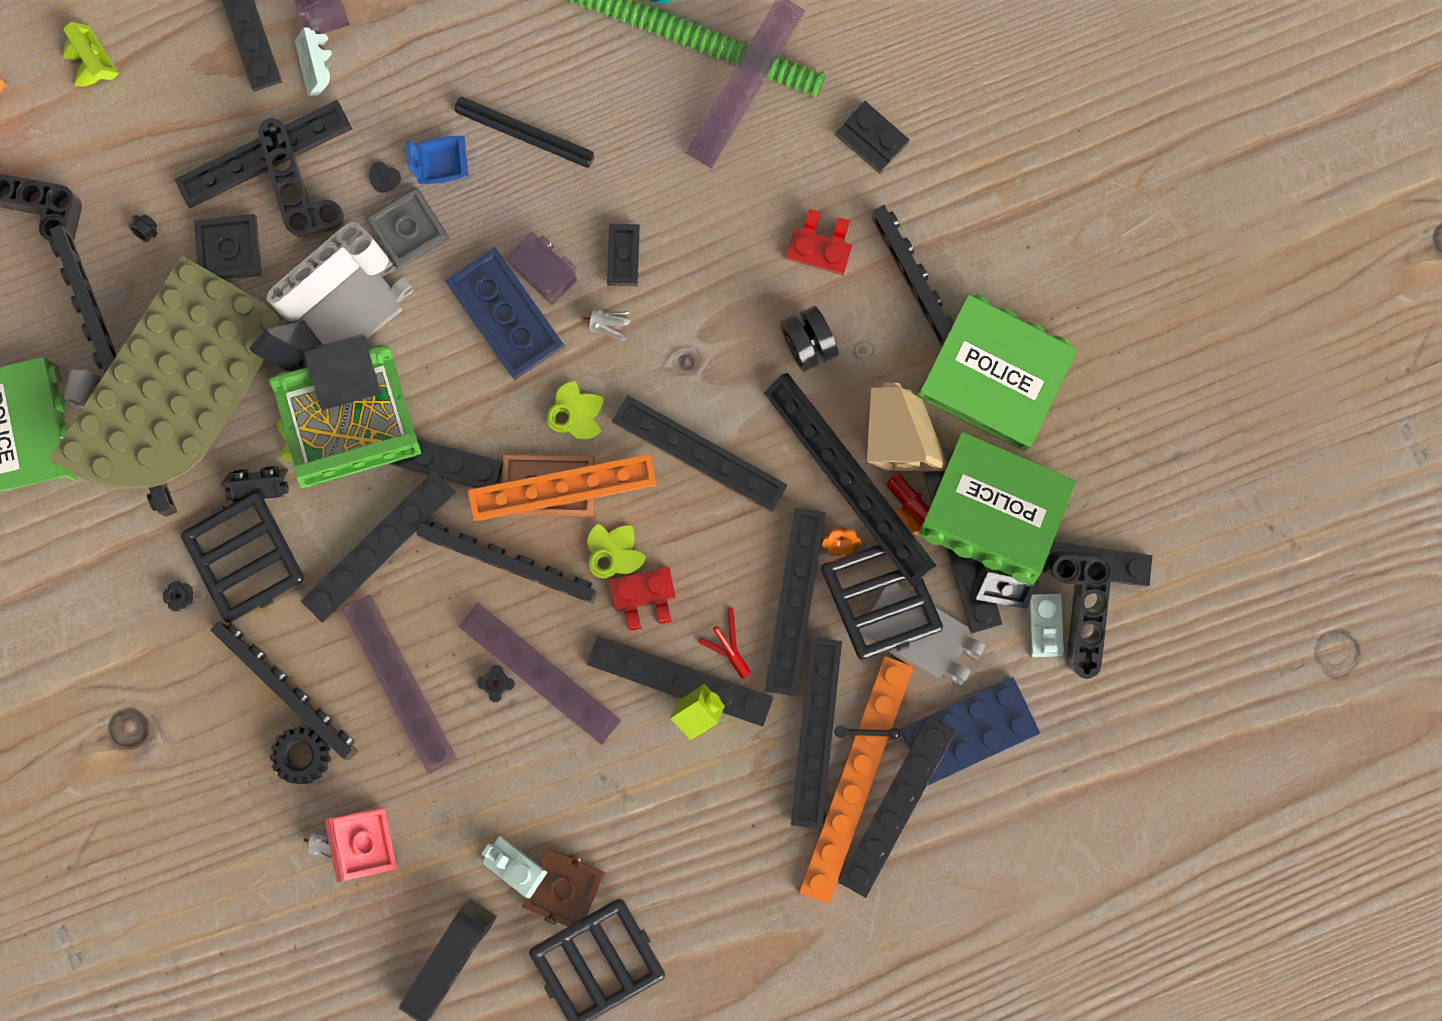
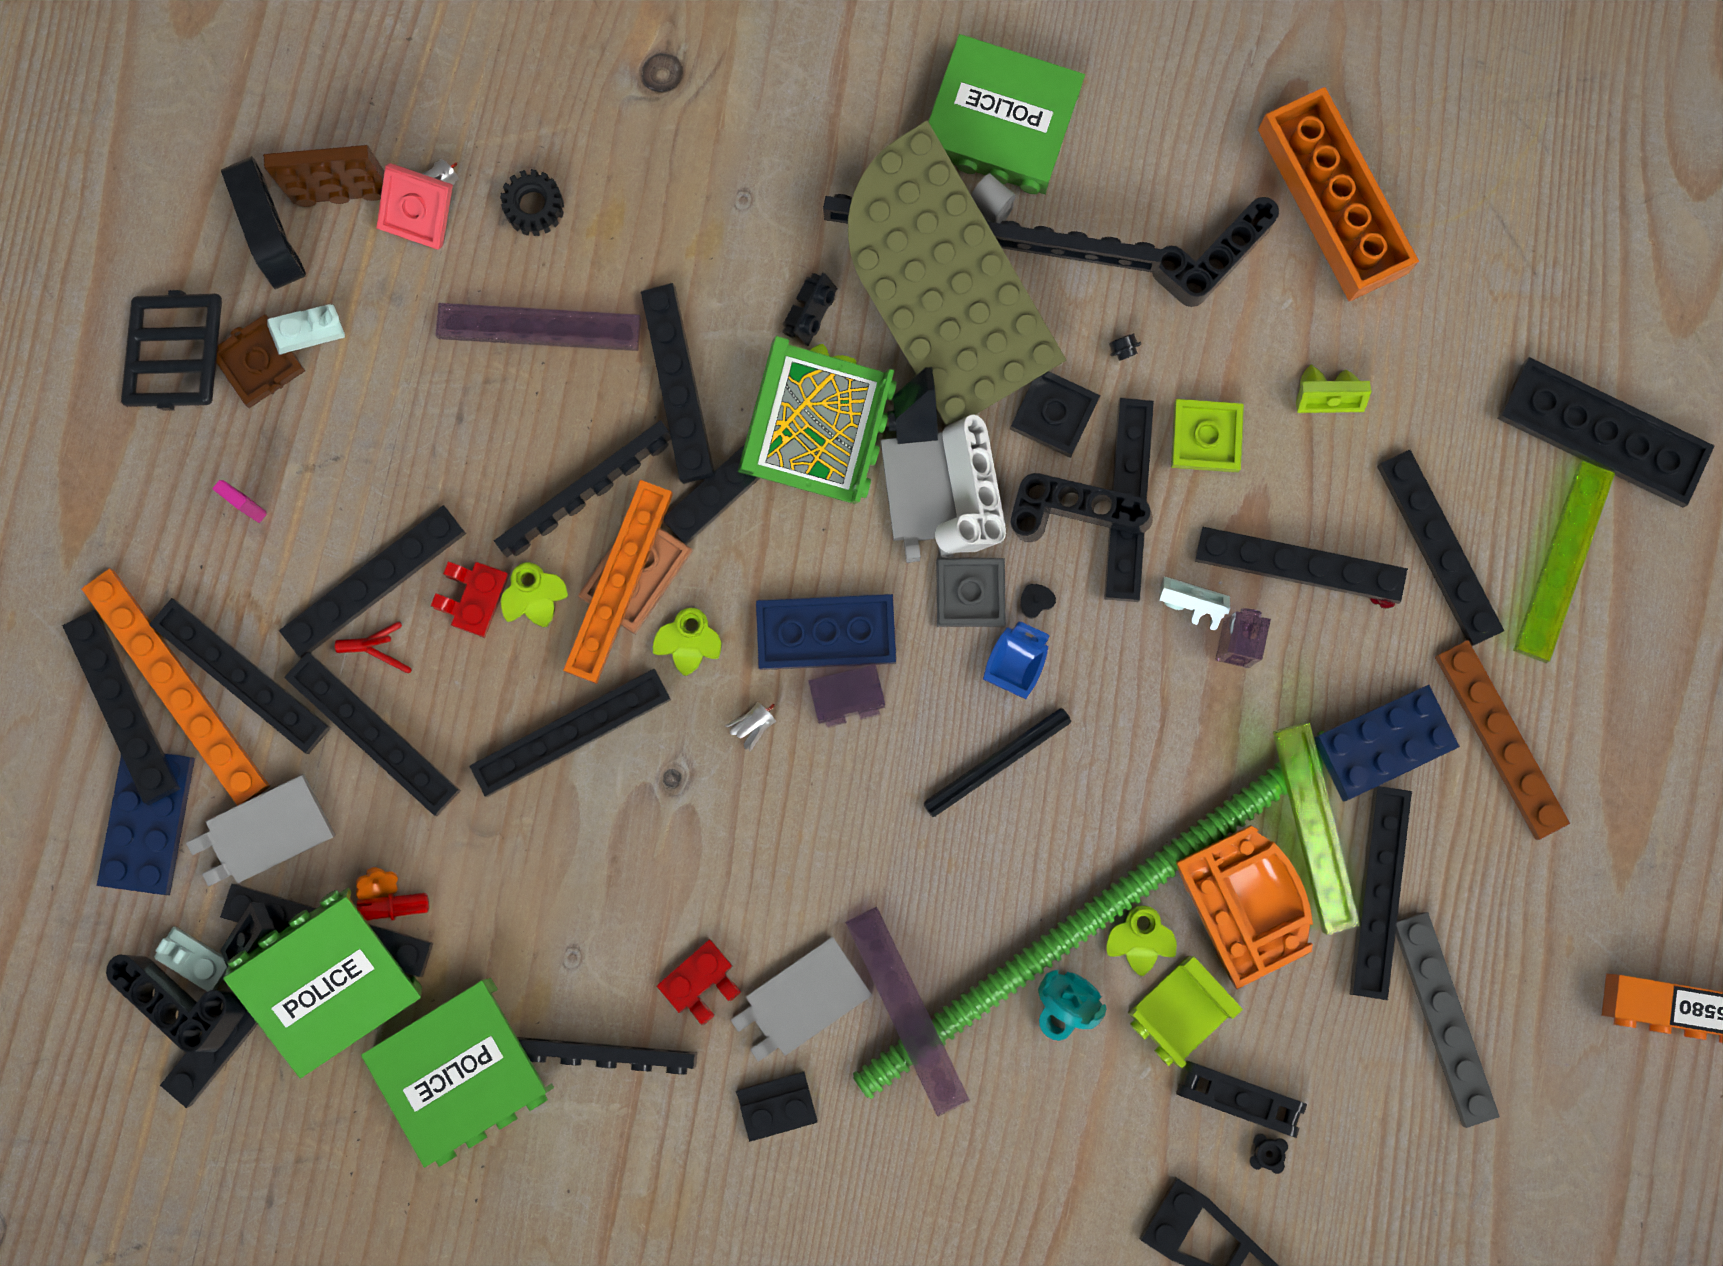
camera: 120 degrees right, 0 degrees up
(178, 126) = (1207, 435): none -> lime plate
(184, 601) = (749, 188): black plate -> none
(276, 679) = (611, 219): black plate -> none
(281, 552) = (729, 292): black bar -> none
(342, 371) = (858, 442): black tile -> none
(377, 921) = (327, 174): none -> reddish brown plate
(495, 674) = (476, 406): black plate -> none
(540, 673) = (465, 459): clear purple plate -> none
(623, 255) = (811, 781): black plate -> none
(682, 818) = (239, 500): none -> dark pink tile
(697, 712) = (327, 575): lime brick -> none
(786, 165) = (803, 999): none -> light grey tile
(809, 339) = (608, 907): black wheel -> none
(841, 541) = (399, 814): orange plant -> none
(841, 731) = (221, 698): black hinge -> none
(850, 479) = (447, 858): black tile -> none
(853, 624) = (292, 855): black bar -> none
(902, 432) = (453, 937): tan slope -> none

